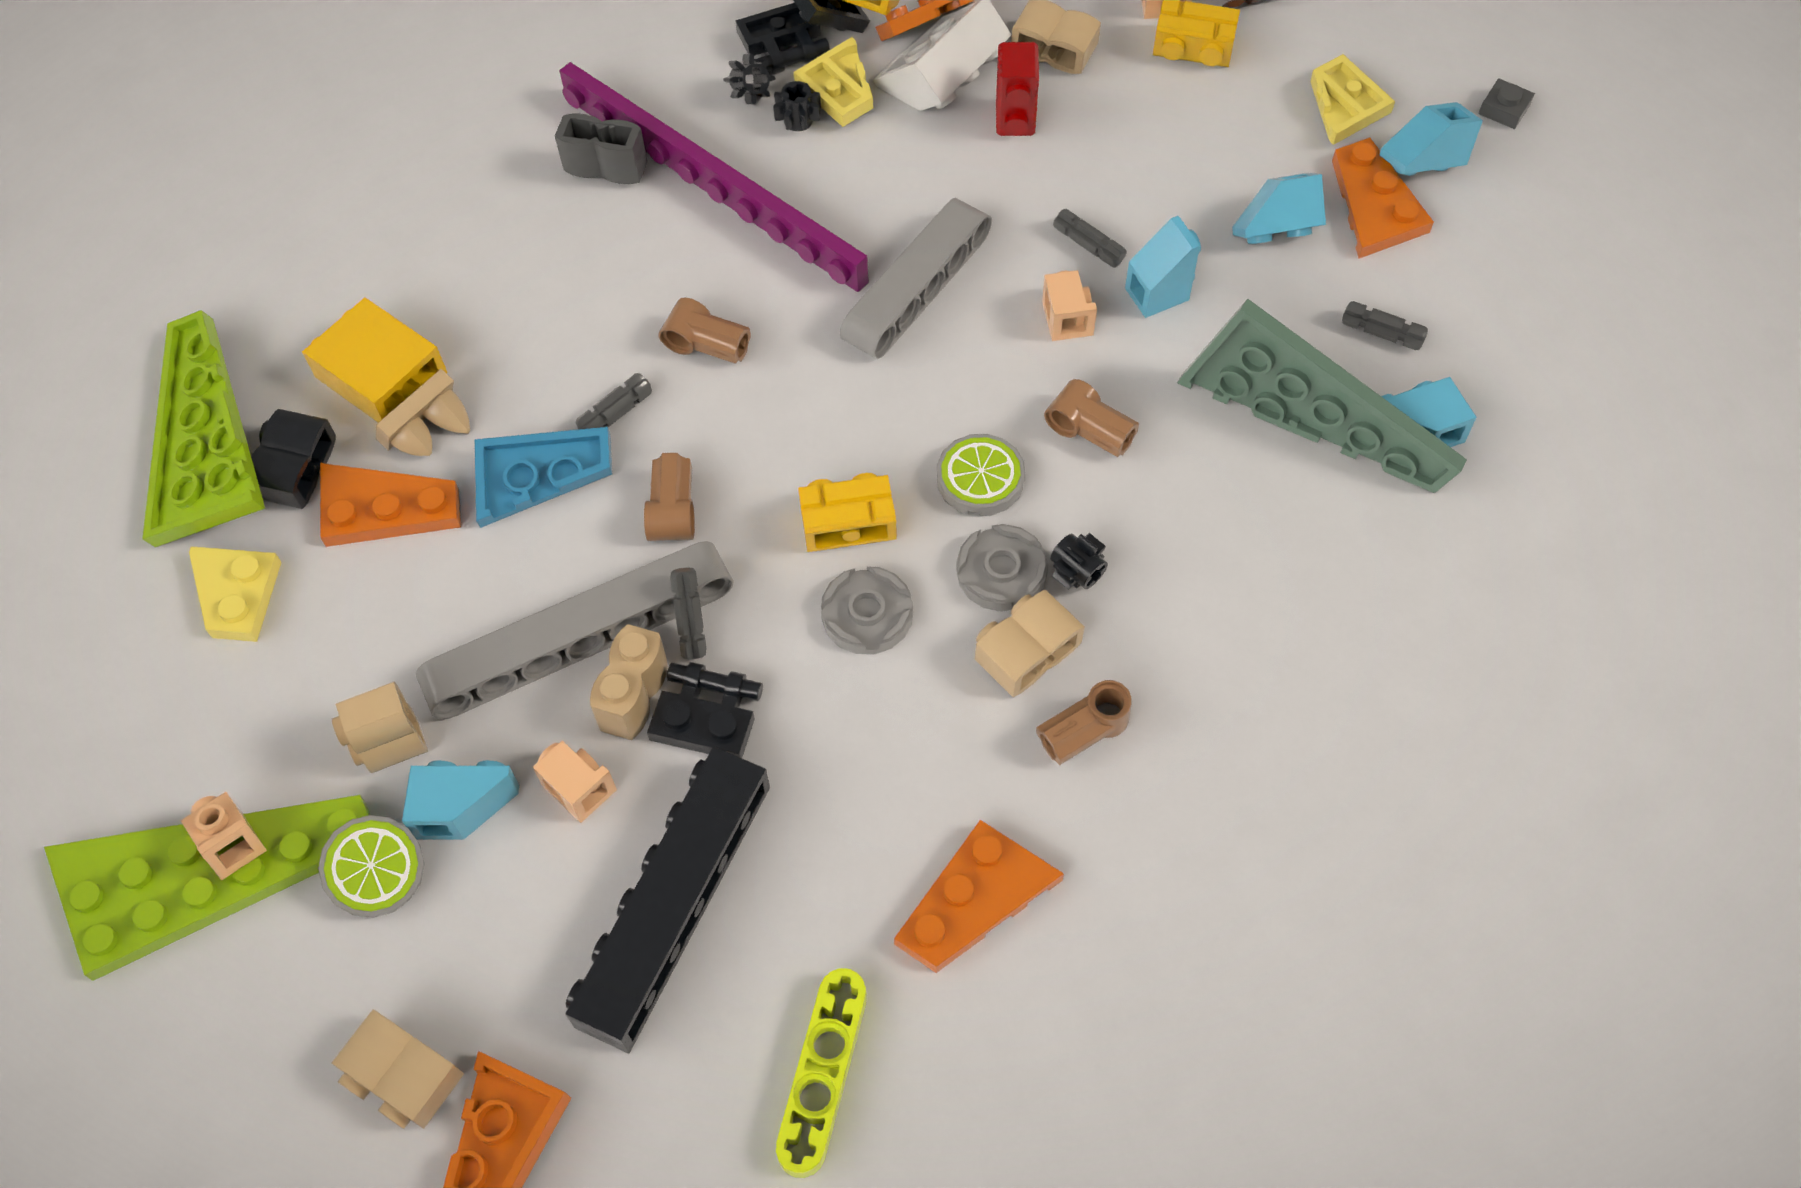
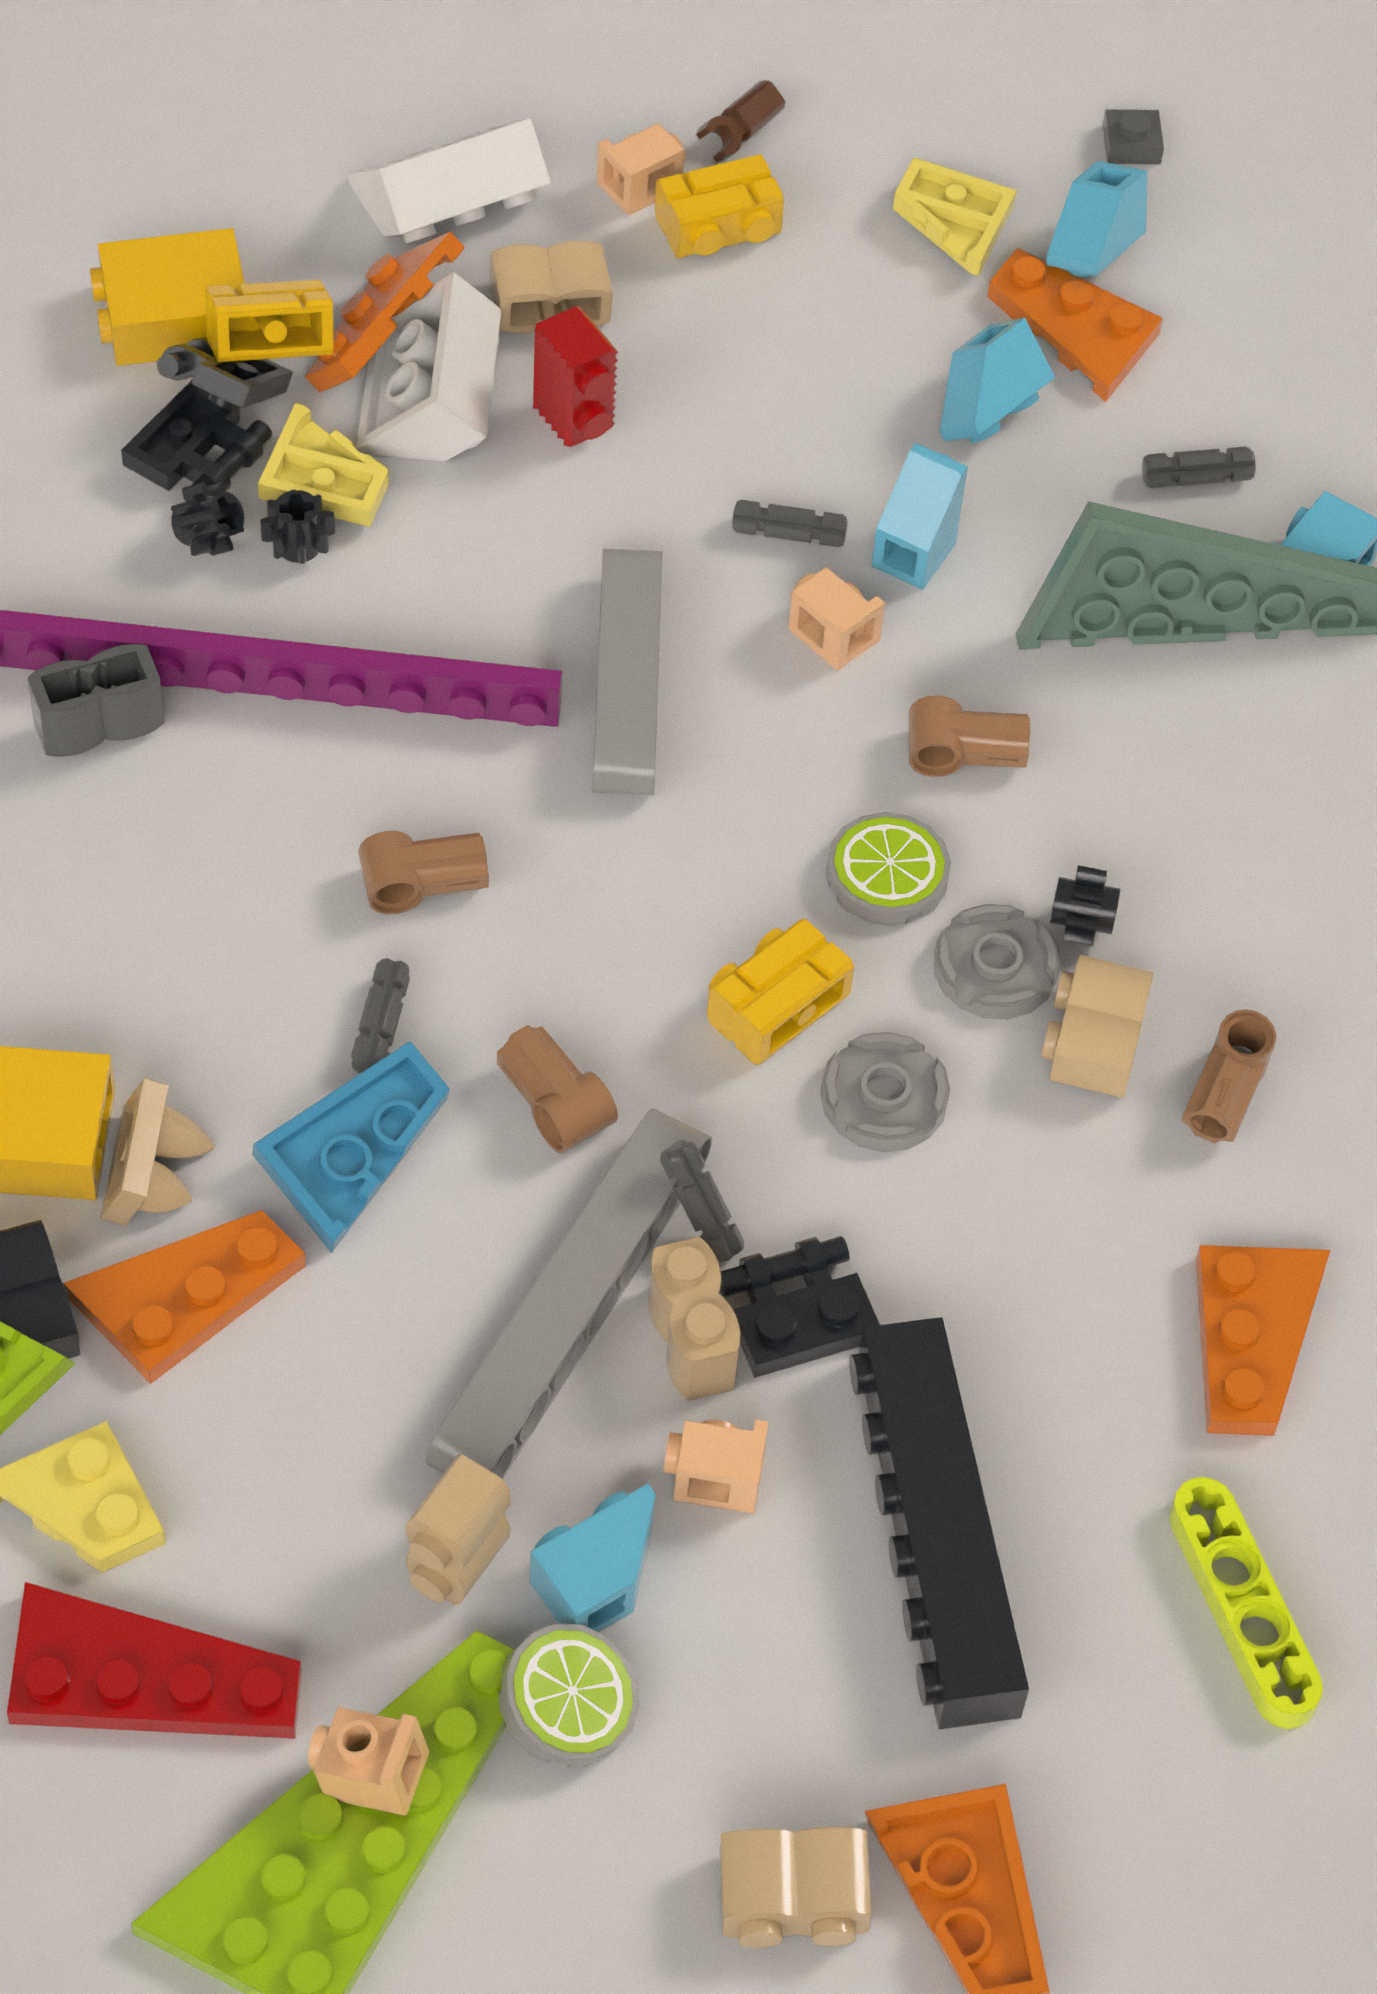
camera: 40 degrees left, 5 degrees down
(173, 704) = (136, 1673): none -> red wing

